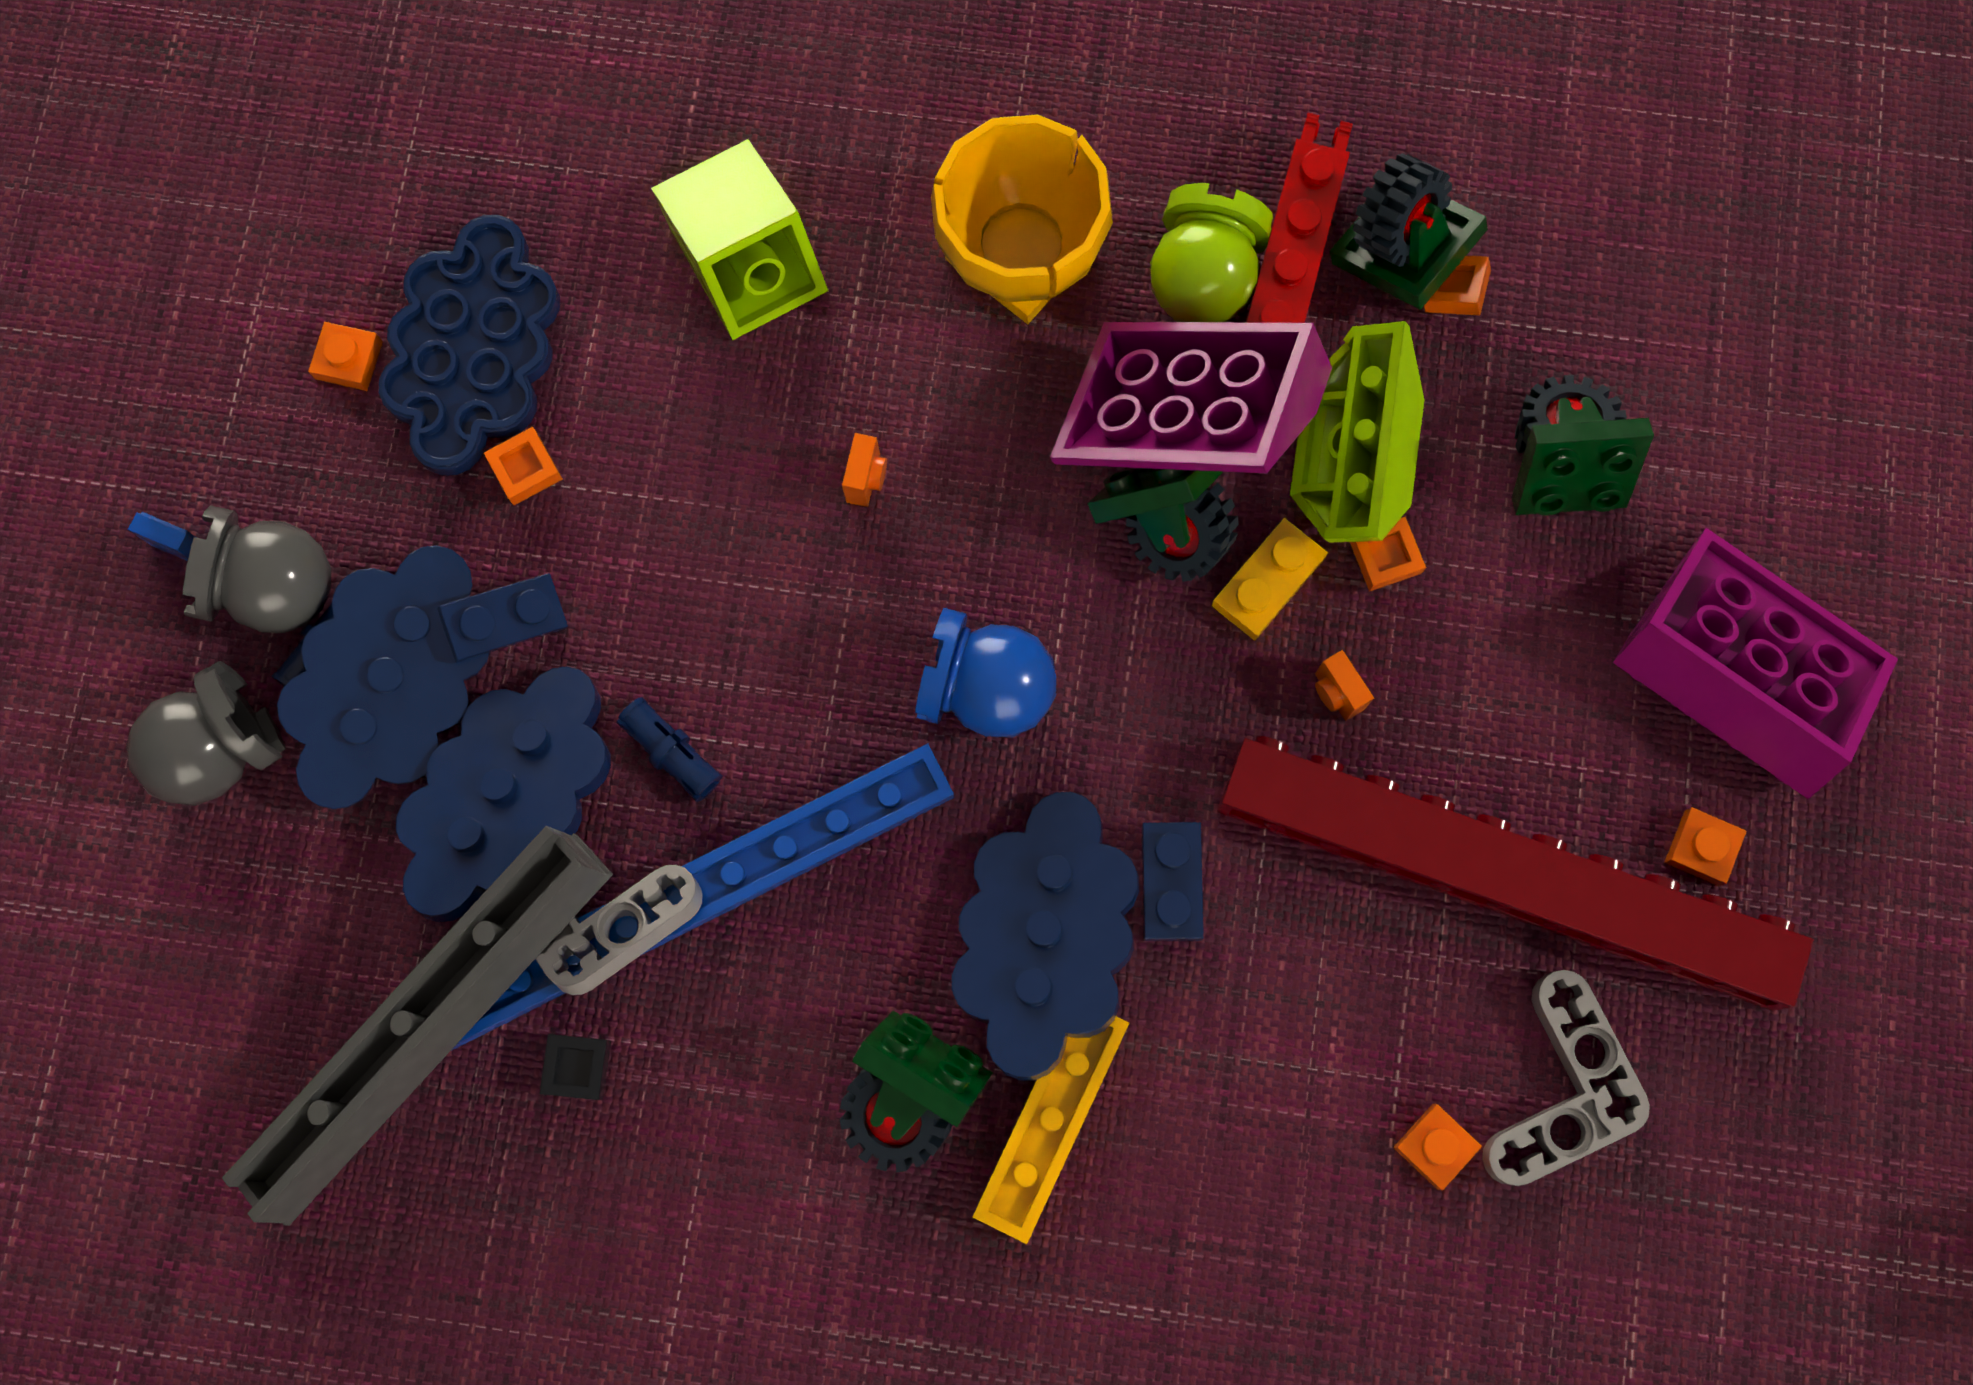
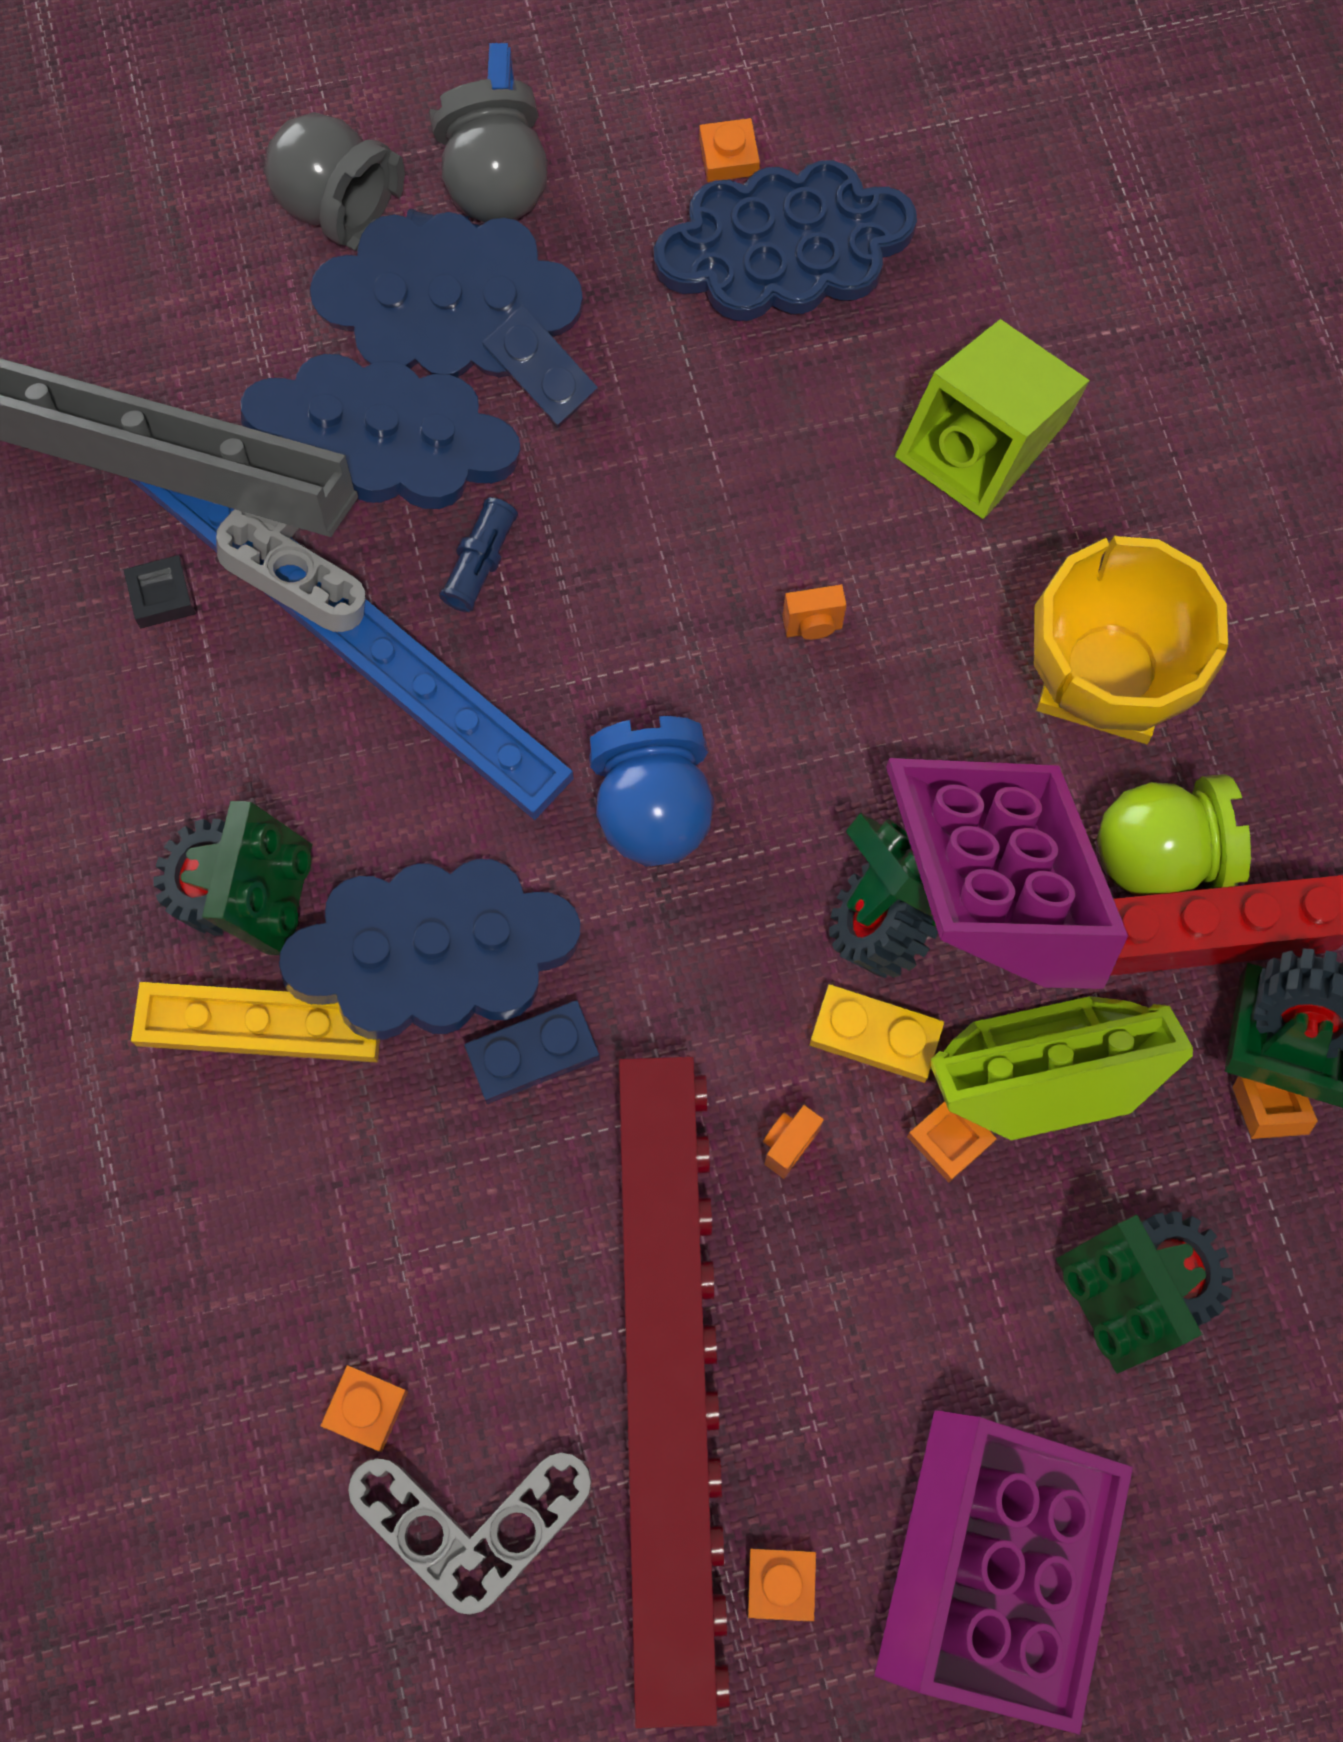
camera: 65 degrees right, 5 degrees down
(523, 466) = (690, 328): orange plate -> none

